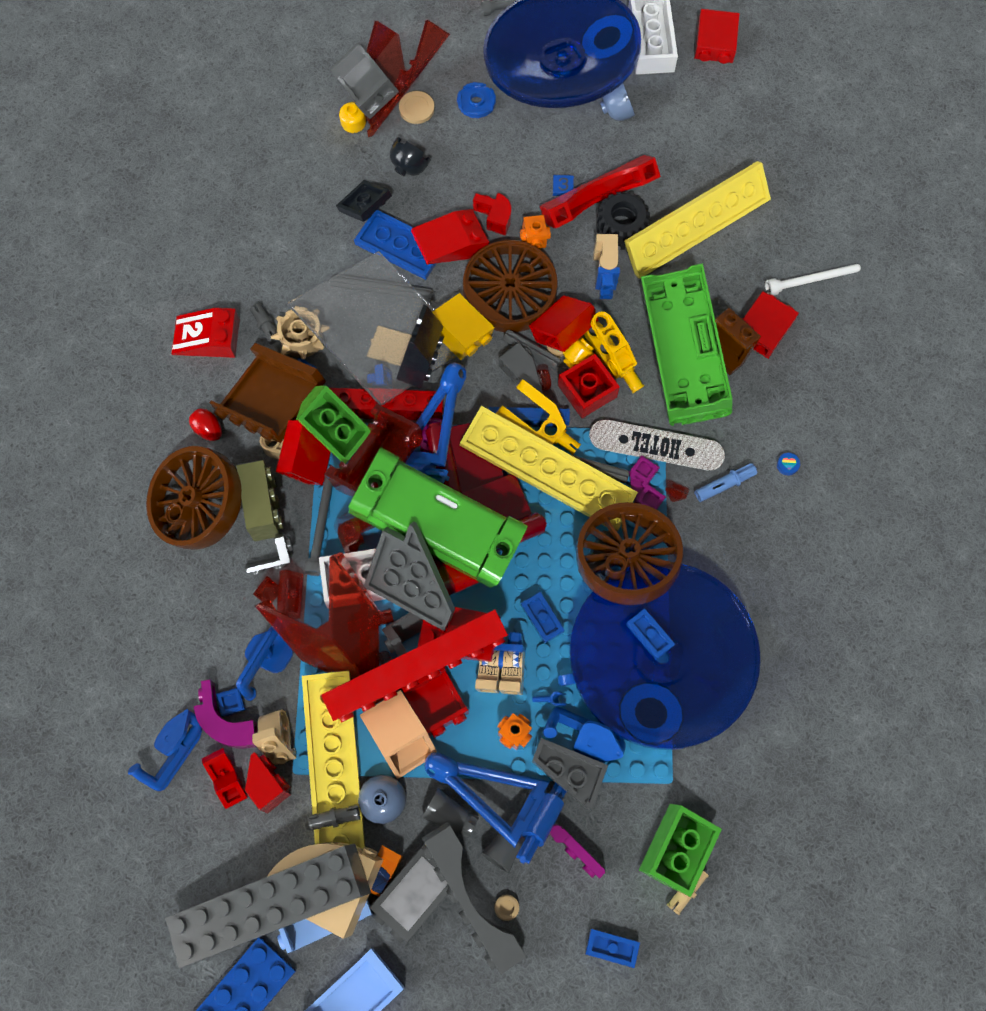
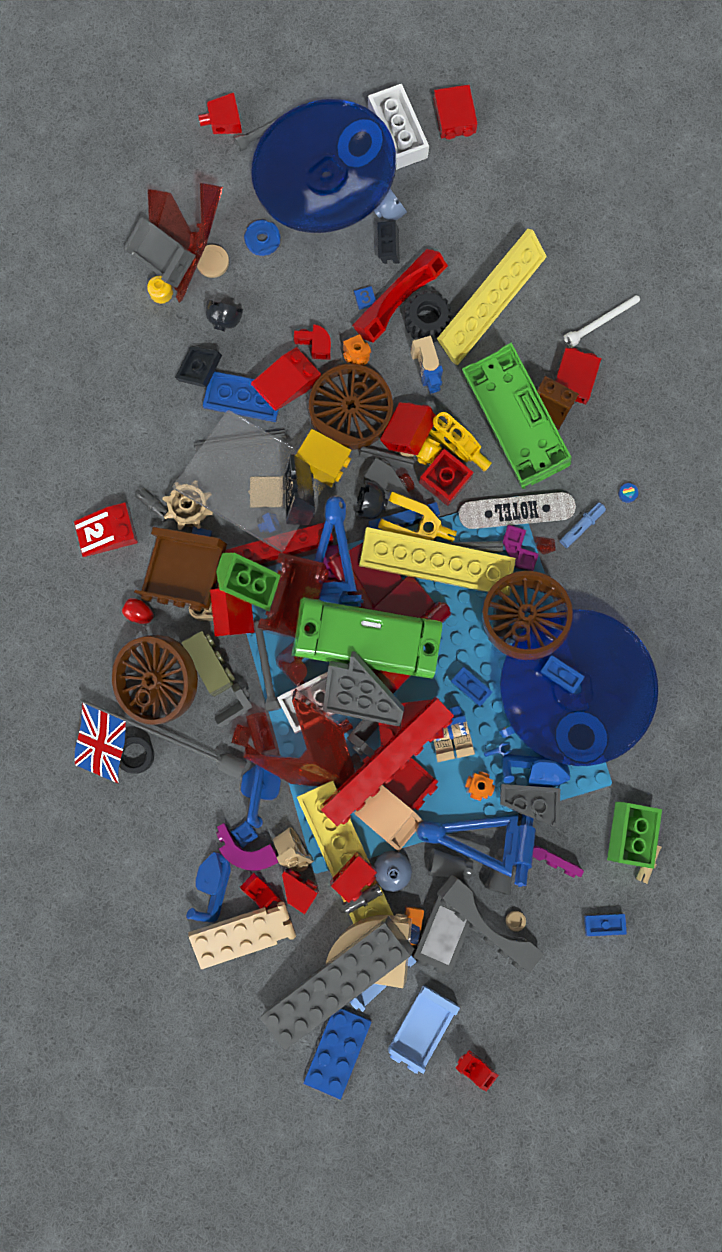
camera: 20 degrees left, 10 degrees up
(115, 546) = (103, 741): none -> flag
(133, 562) = (149, 757): none -> black tyre
(182, 815) = (241, 935): none -> tan hinge
(331, 785) = (353, 877): none -> red brick
(498, 386) = (371, 500): none -> black cylinder
(606, 137) = (388, 241): none -> black hinge

